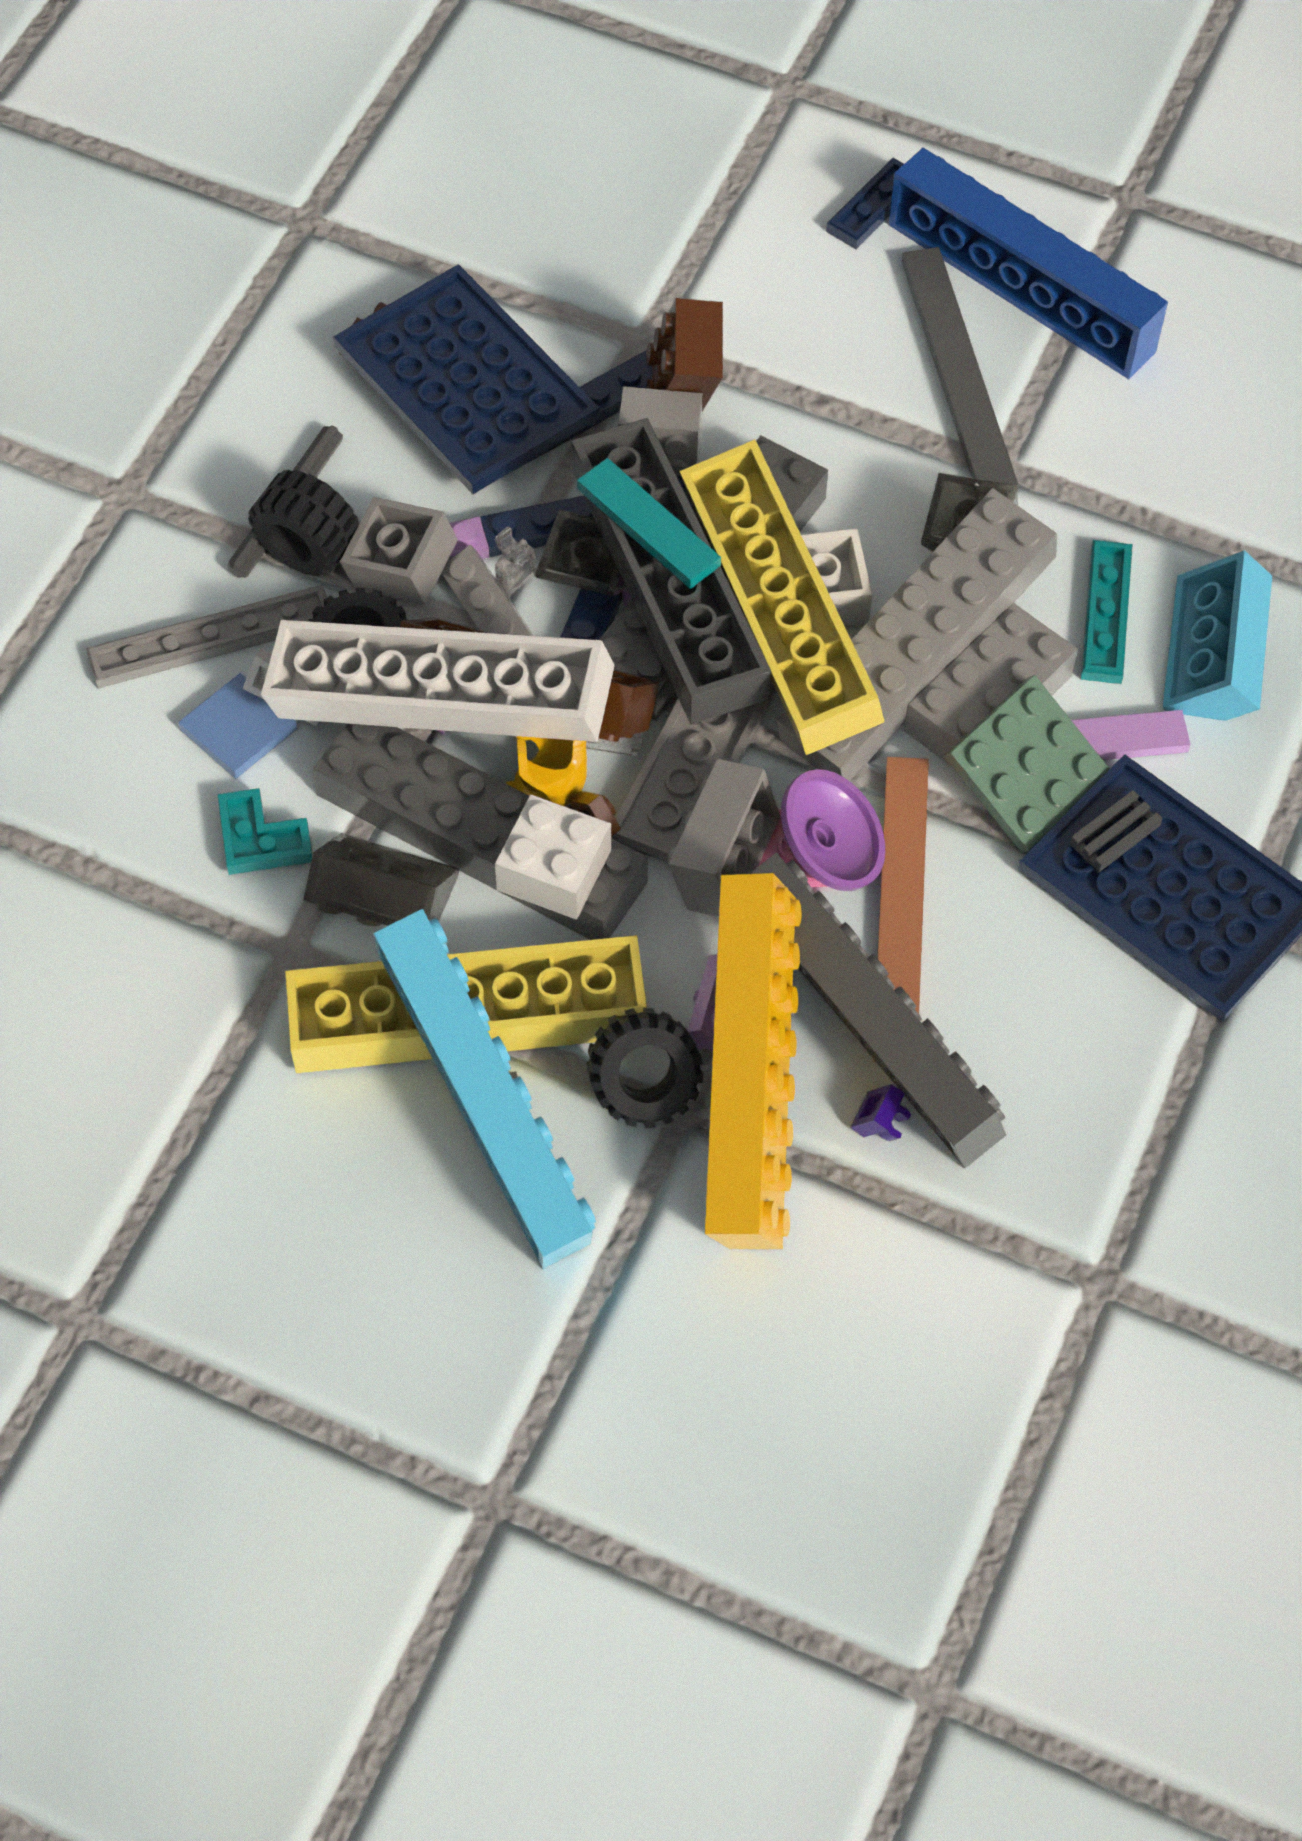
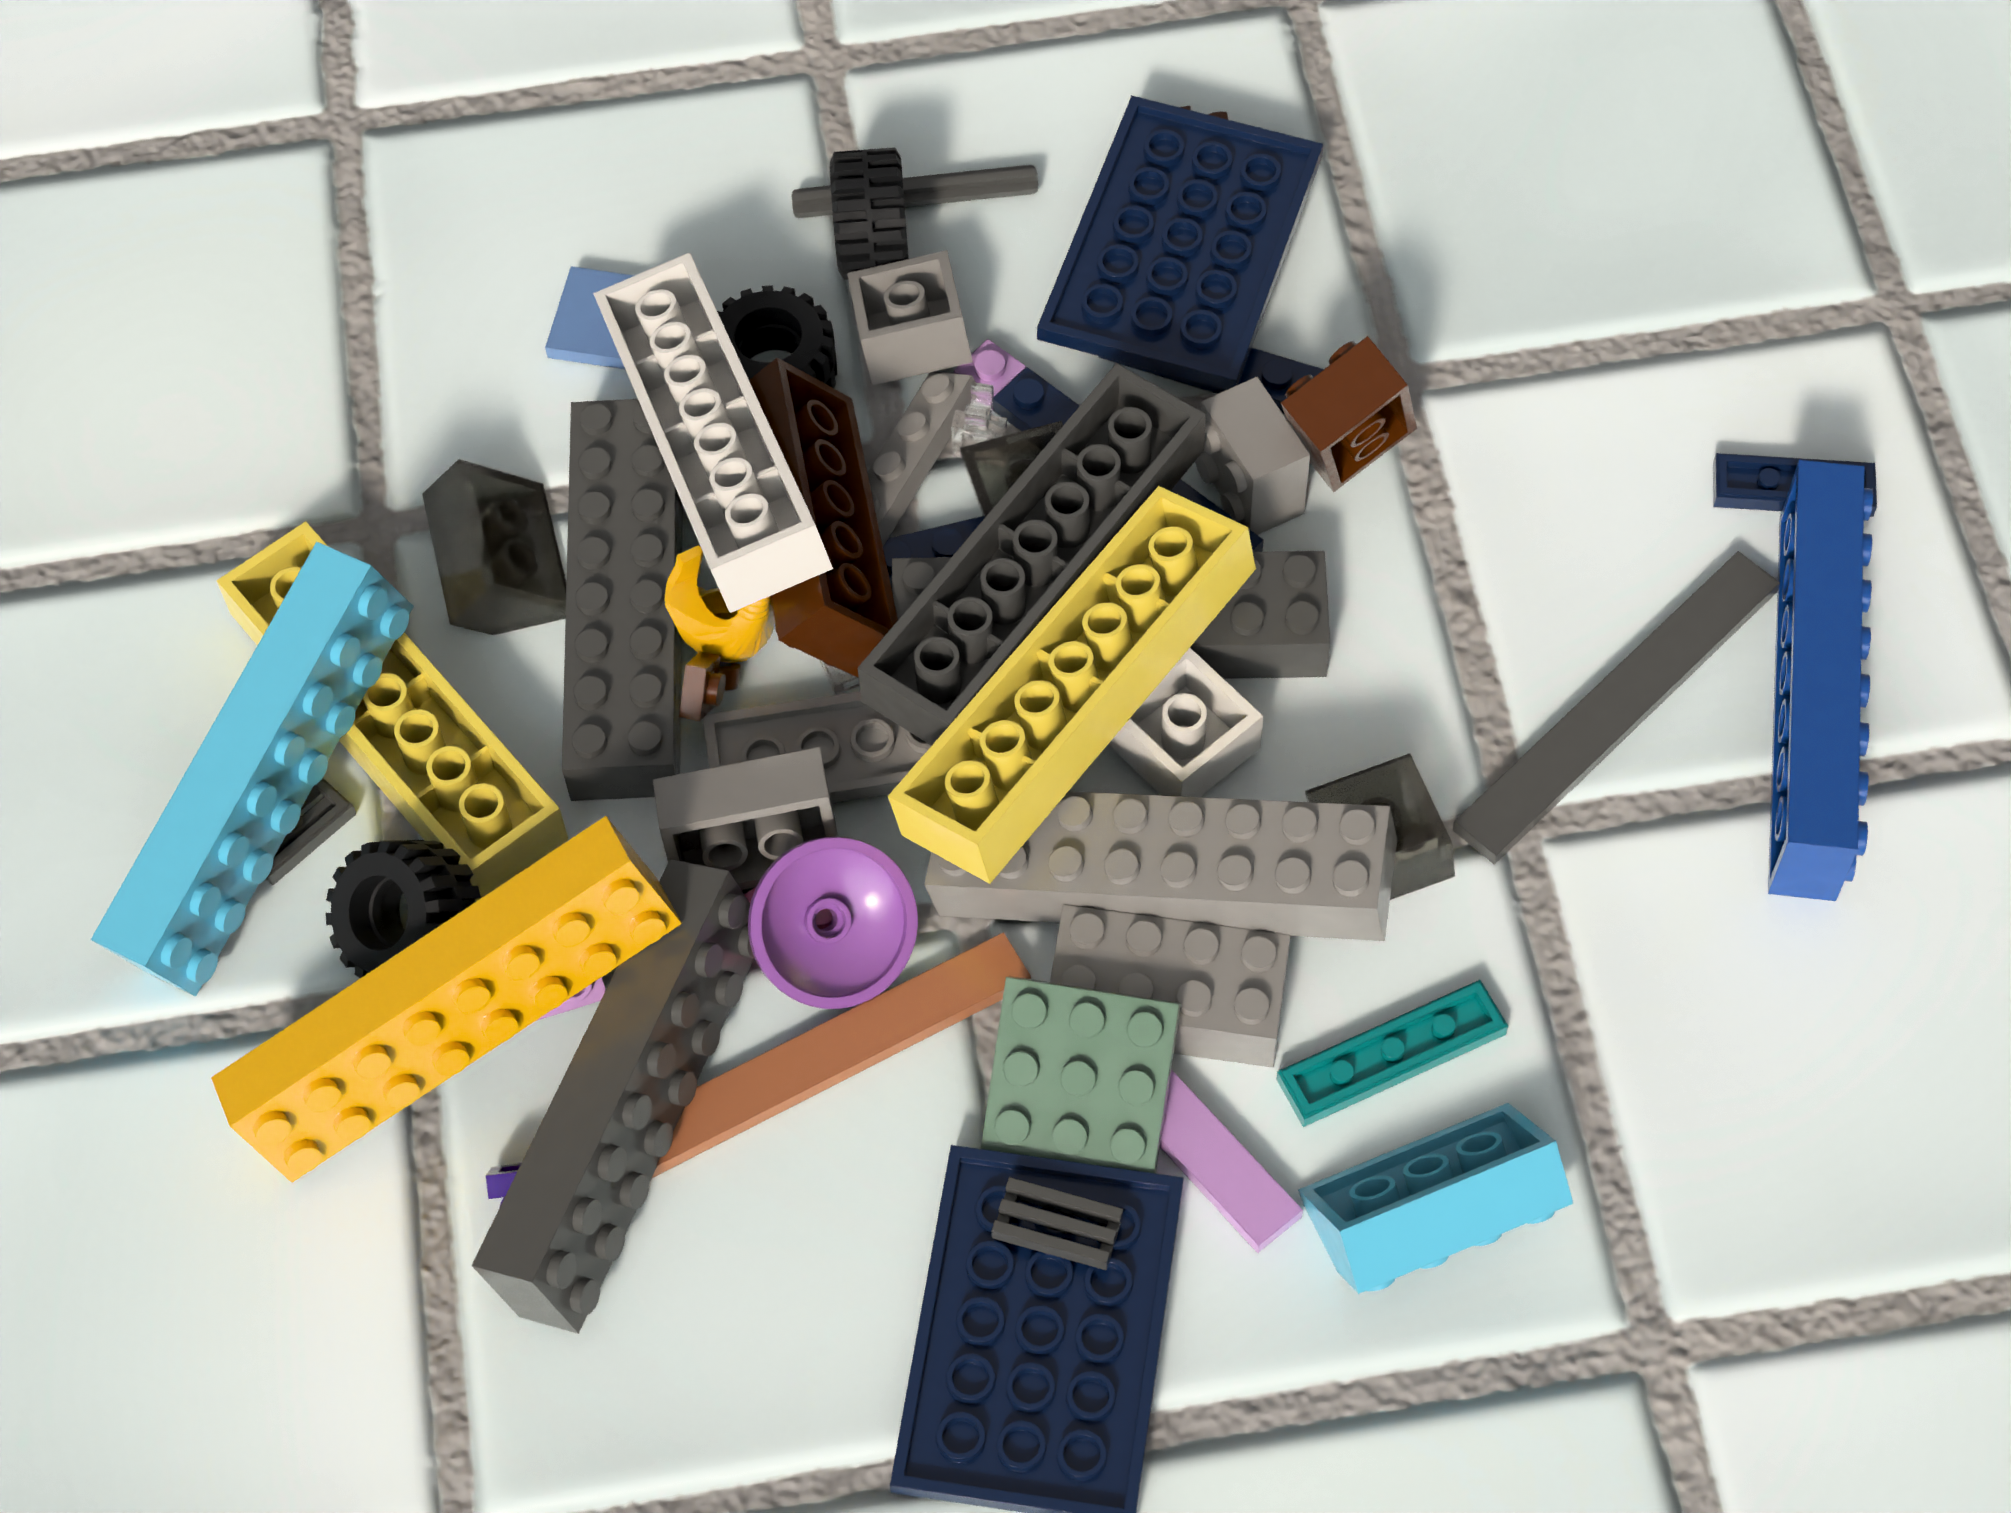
camera: 60 degrees right, 0 degrees up
(200, 637) = (693, 225): light grey tile -> none
(256, 845) = (473, 412): teal plate -> none
(553, 856) = (584, 667): white brick -> none
(649, 523) = (1052, 495): teal tile -> none

